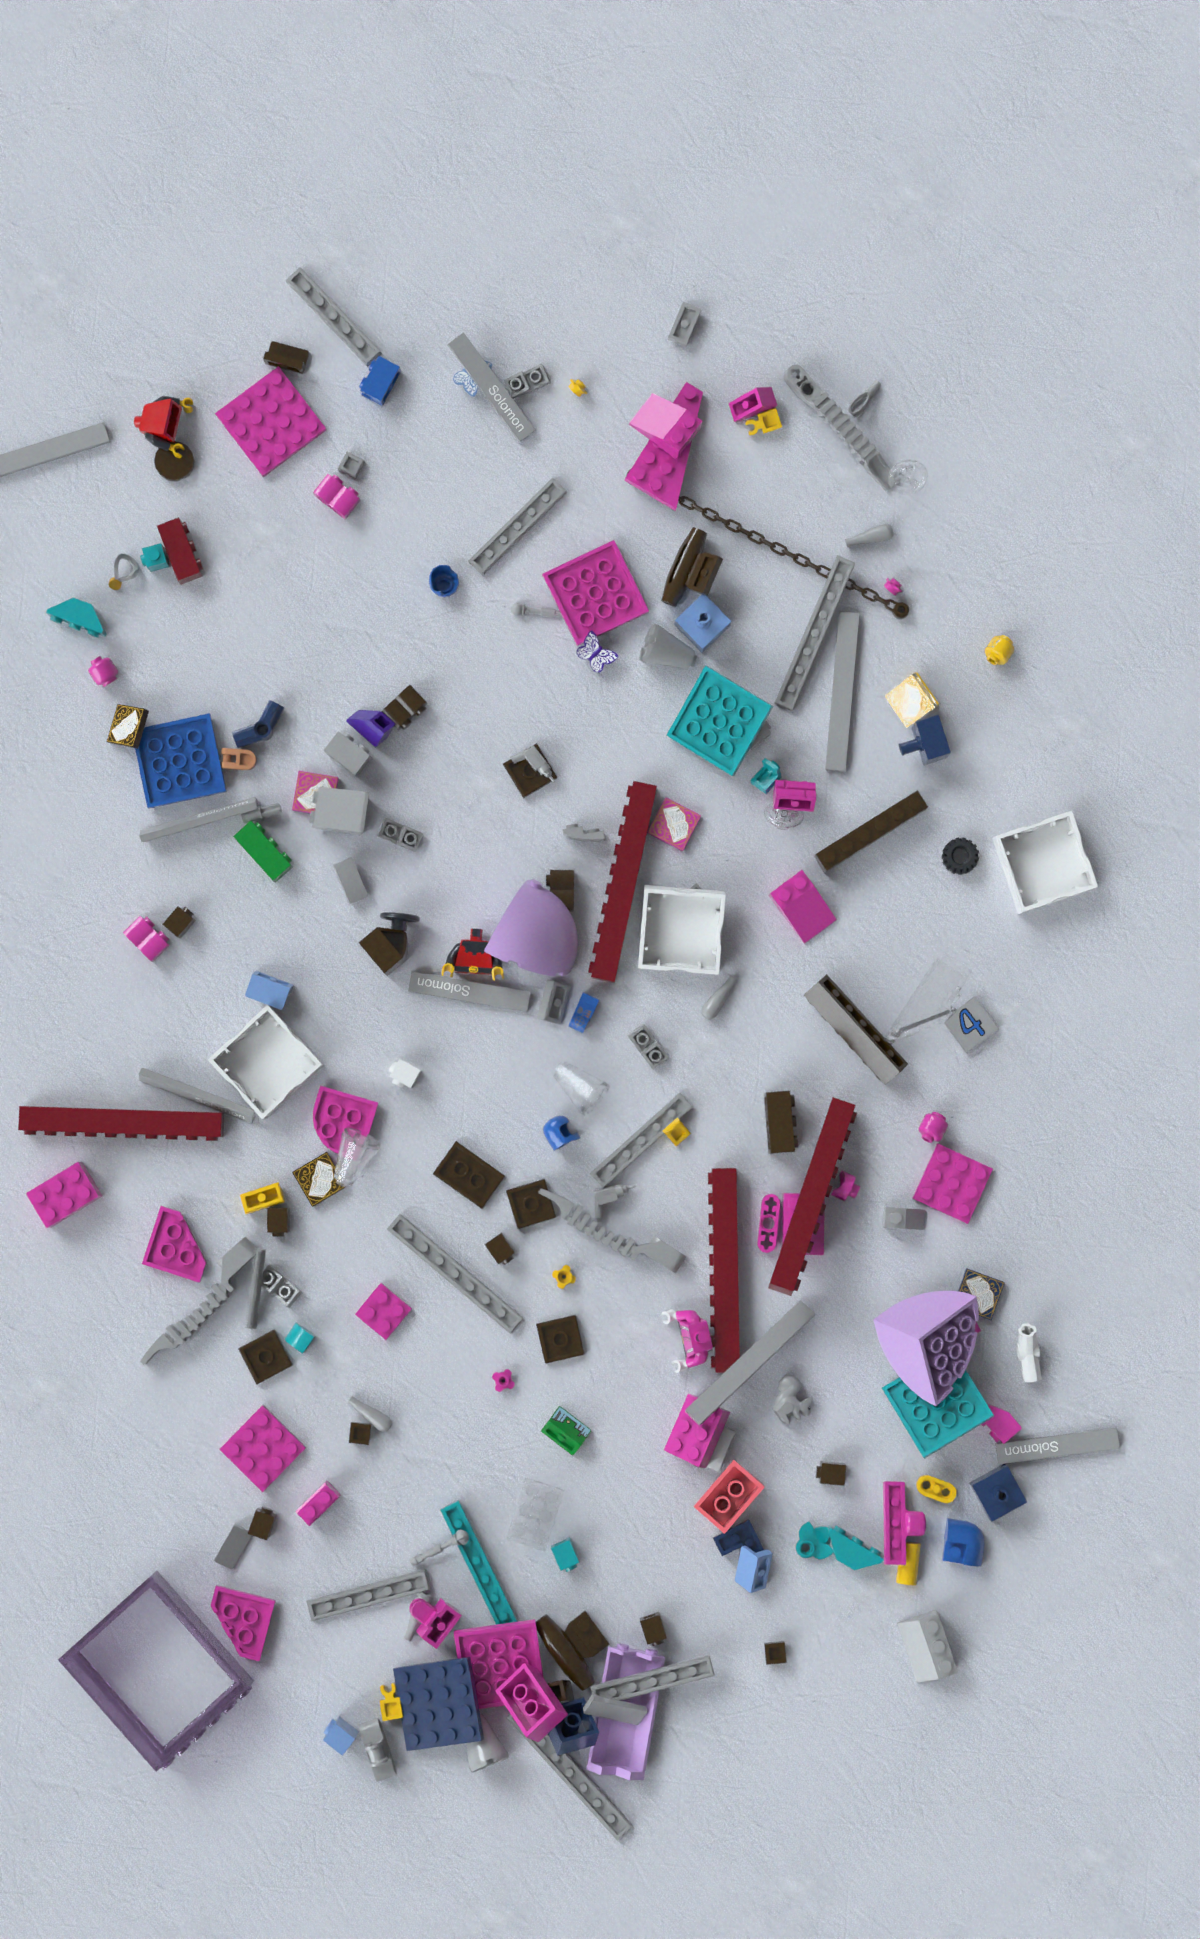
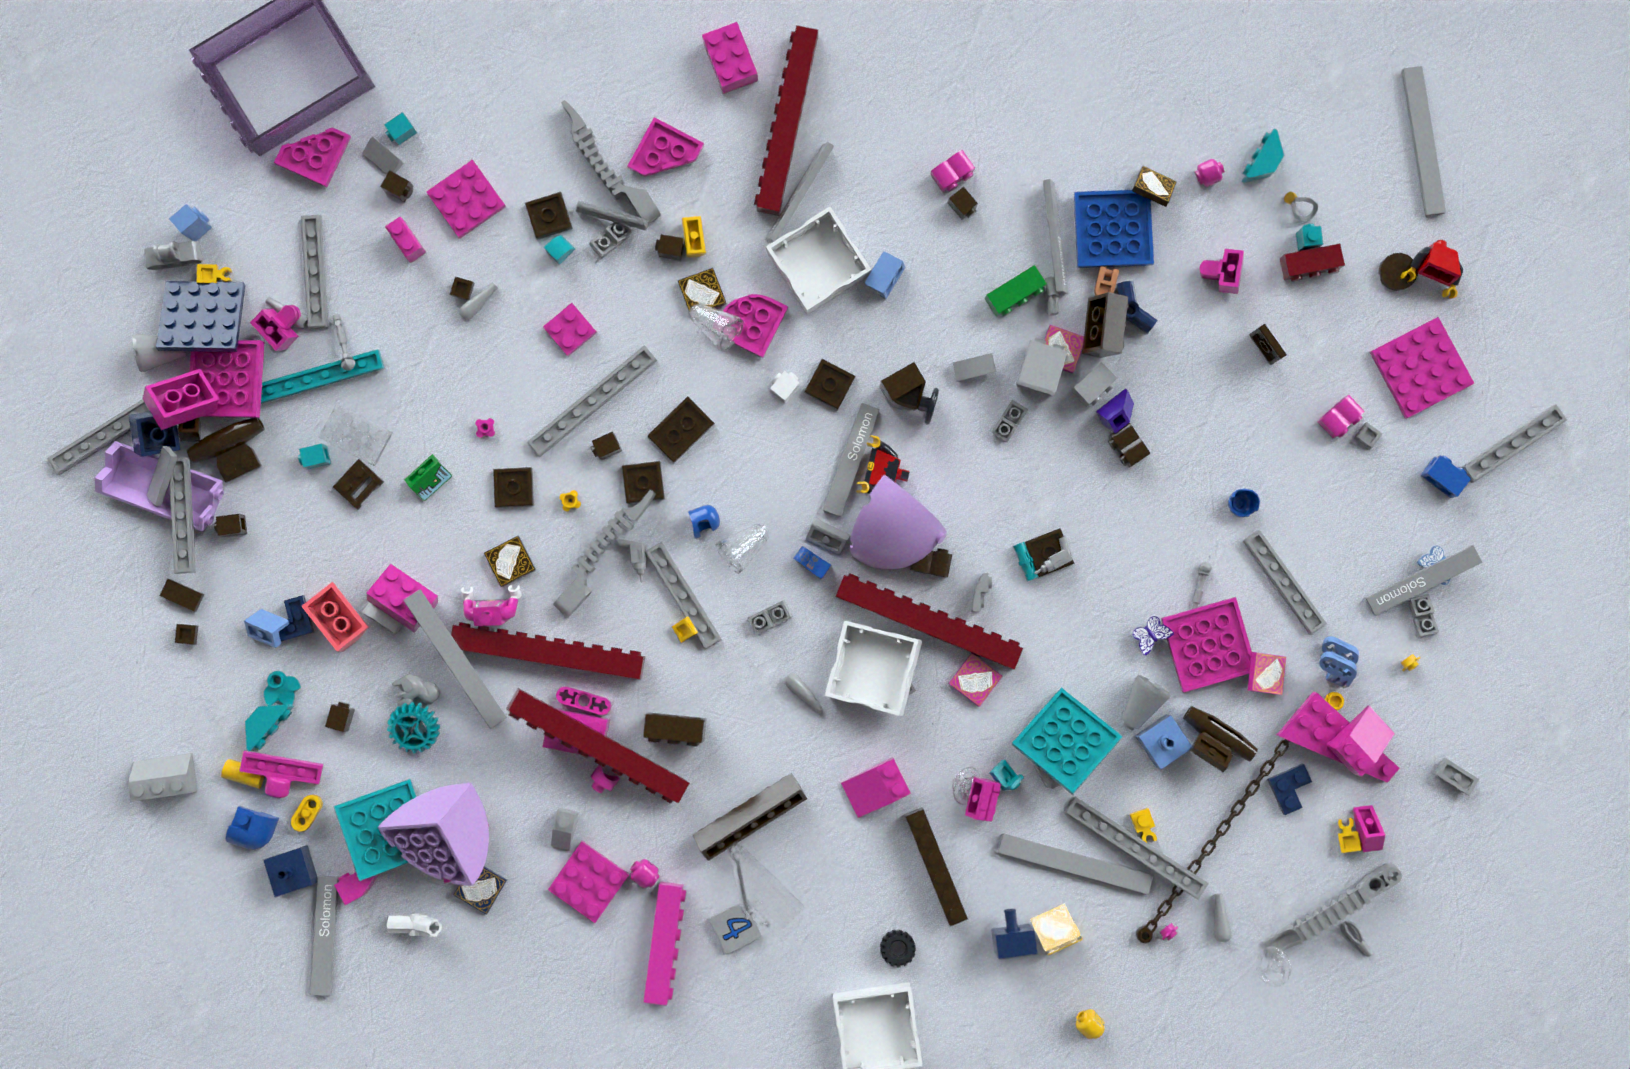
camera: 95 degrees right, 0 degrees up
(200, 1533) = (400, 129): none -> teal brick
(205, 636) = (1226, 271): none -> dark pink brick
(275, 583) = (1267, 344): none -> dark brown tile
(284, 752) = (1105, 325): none -> brick
(286, 357) = (1481, 392): dark brown panel -> none
(394, 1027) = (830, 384): none -> dark brown tile
(543, 793) = (1025, 561): none -> teal pin
(583, 1509) = (354, 479): none -> dark brown plate
(594, 455) = (1342, 668): none -> medium blue piece
(614, 530) = (1266, 673): none -> tile
(629, 457) = (1335, 700): none -> yellow plate
(638, 1328) = (509, 561): none -> tile
(725, 493) = (1284, 787): none -> dark blue plate
(735, 1666) = (182, 595): none -> dark brown tile
(788, 630) = (1143, 822): none -> yellow plate
(820, 1406) = (425, 735): none -> teal gear
(999, 1094) = (663, 943): none -> dark pink brick

